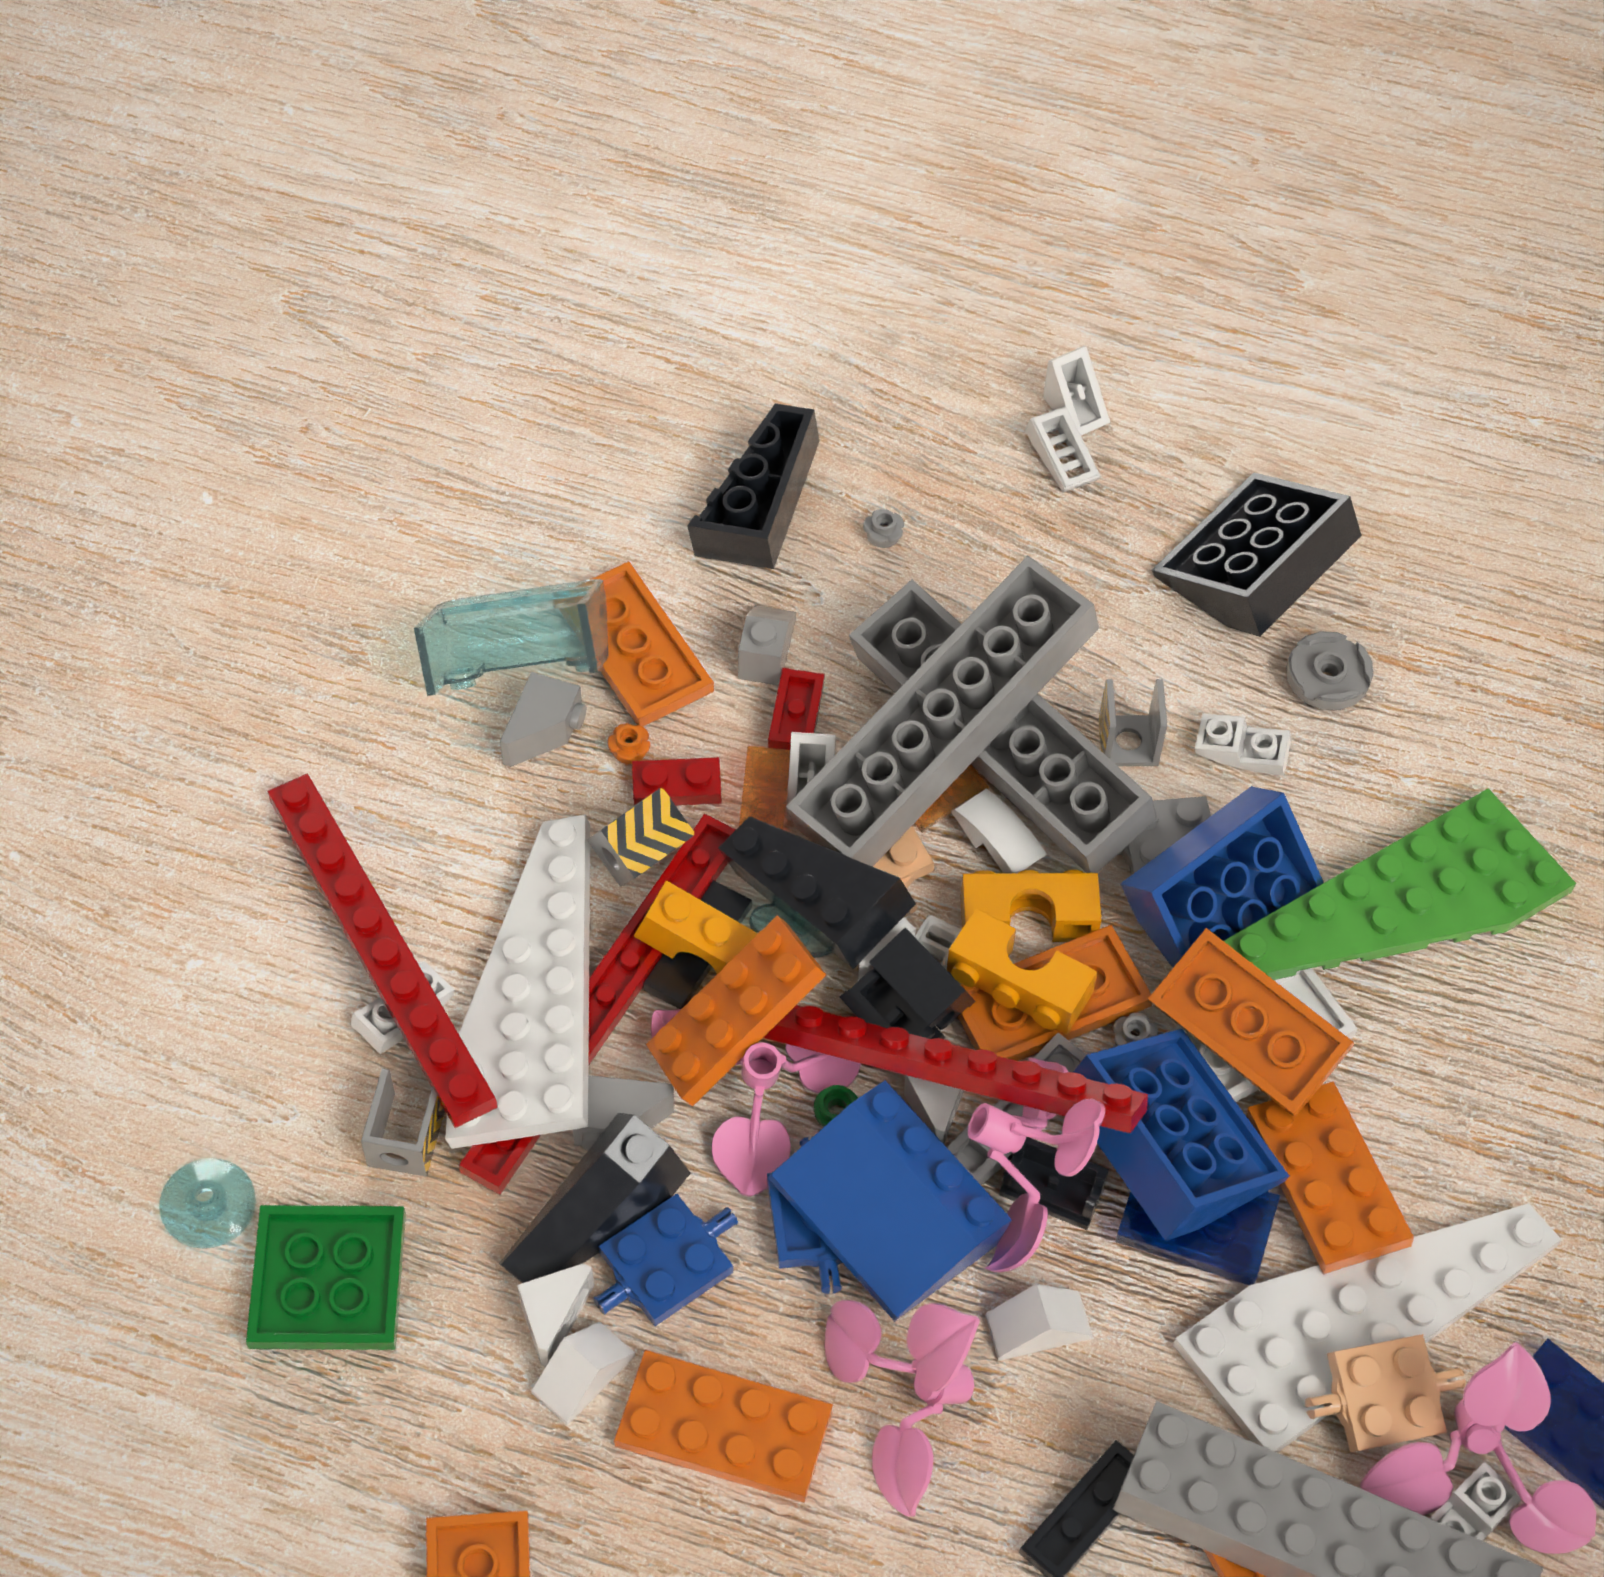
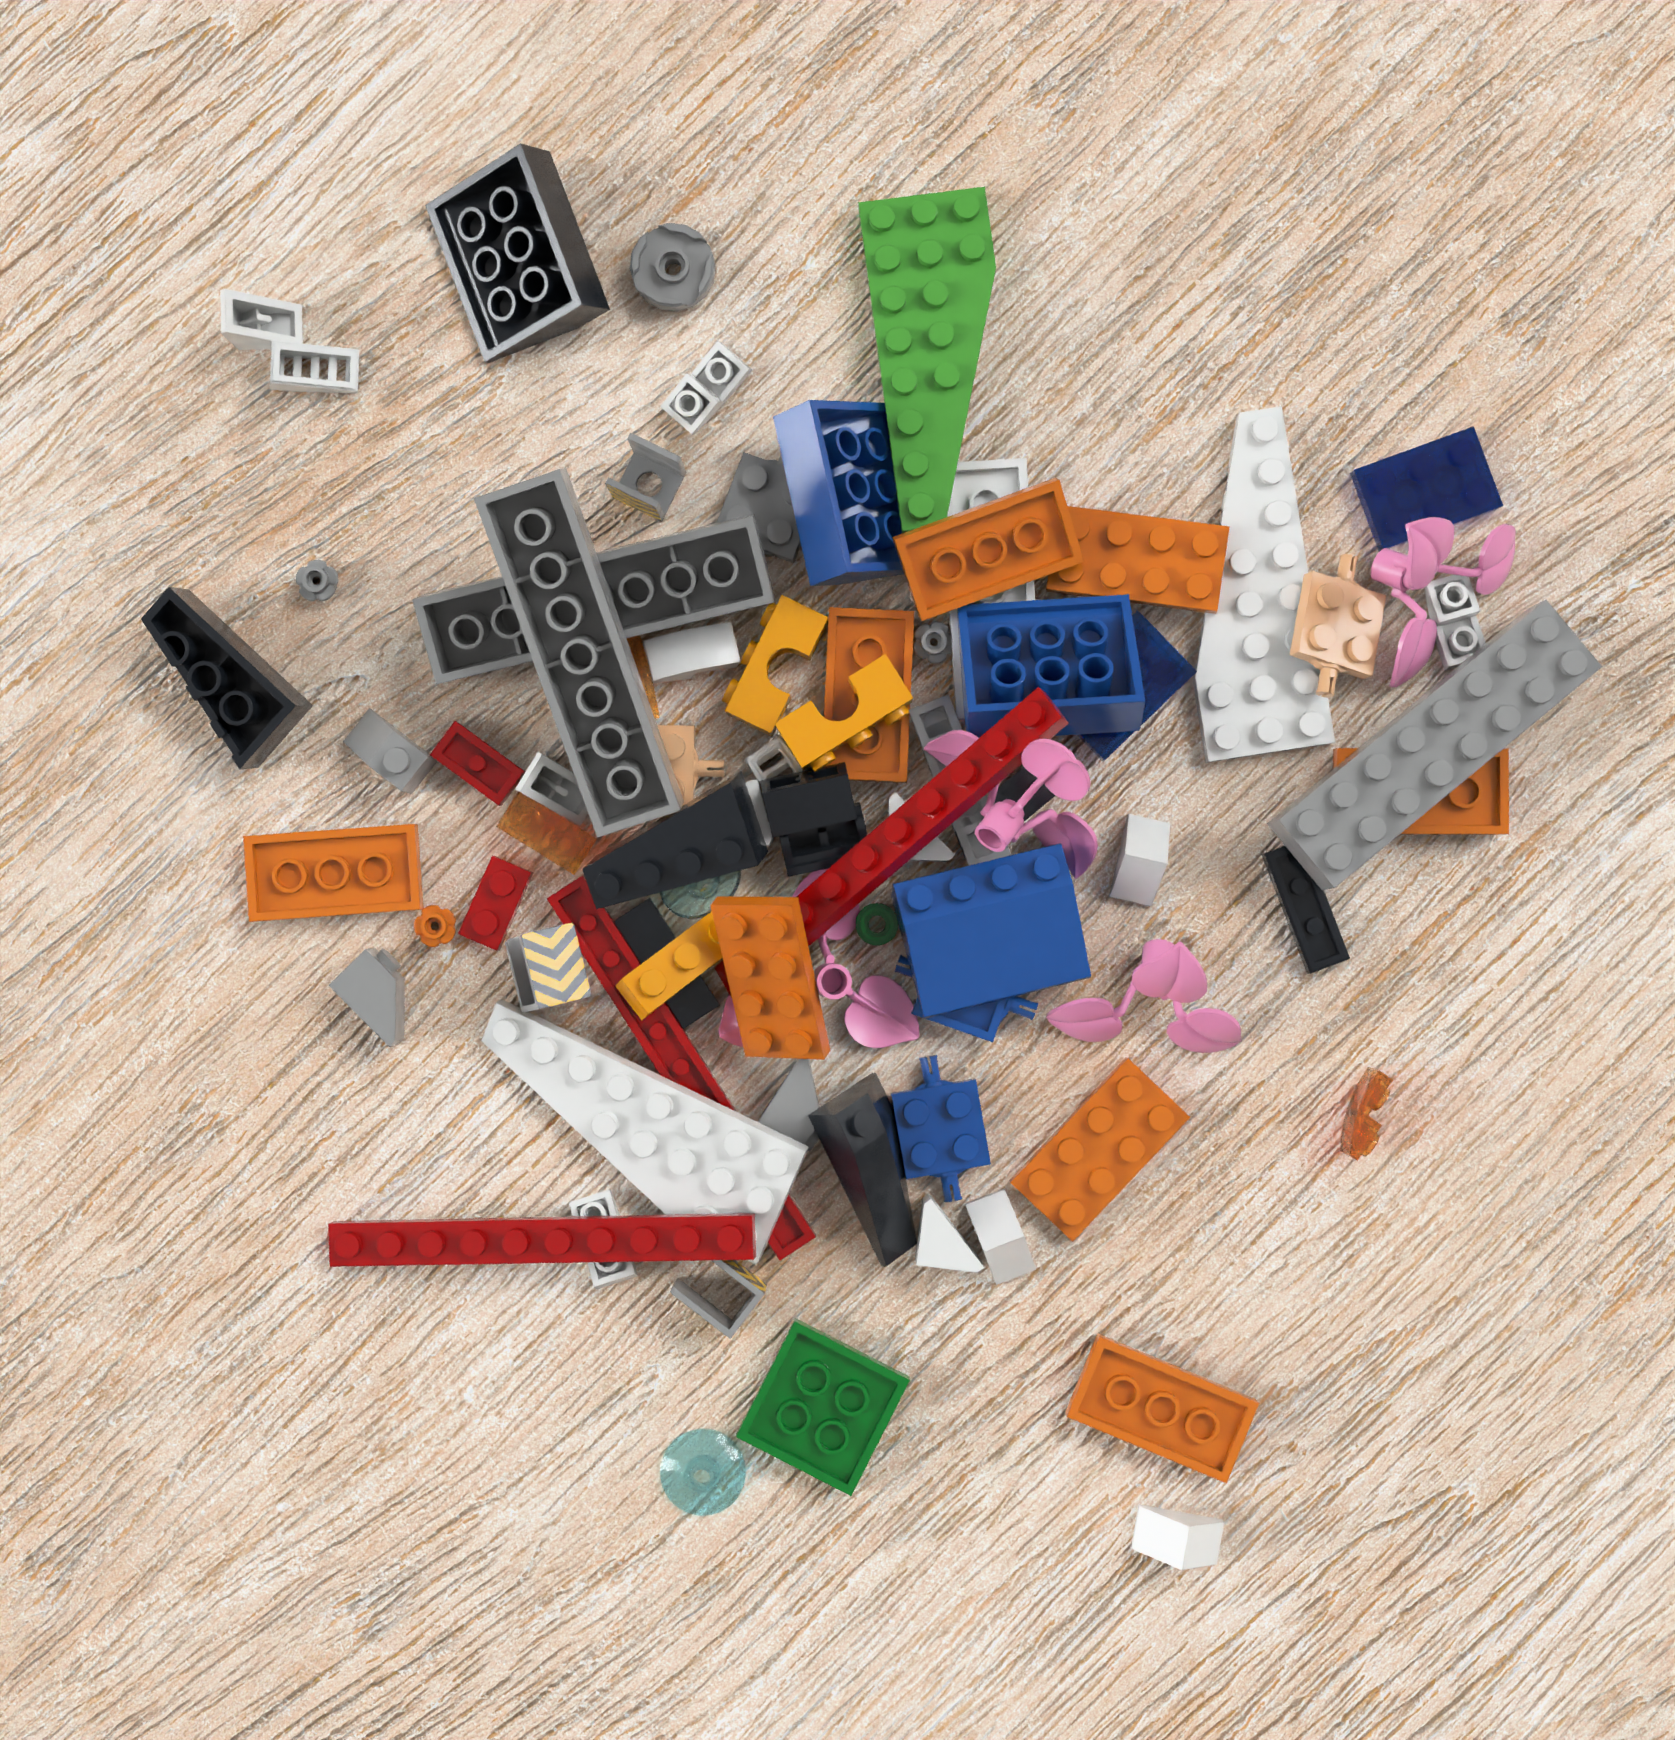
camera: 60 degrees left, 30 degrees up
(513, 631) = (267, 978): clear light blue windscreen -> none

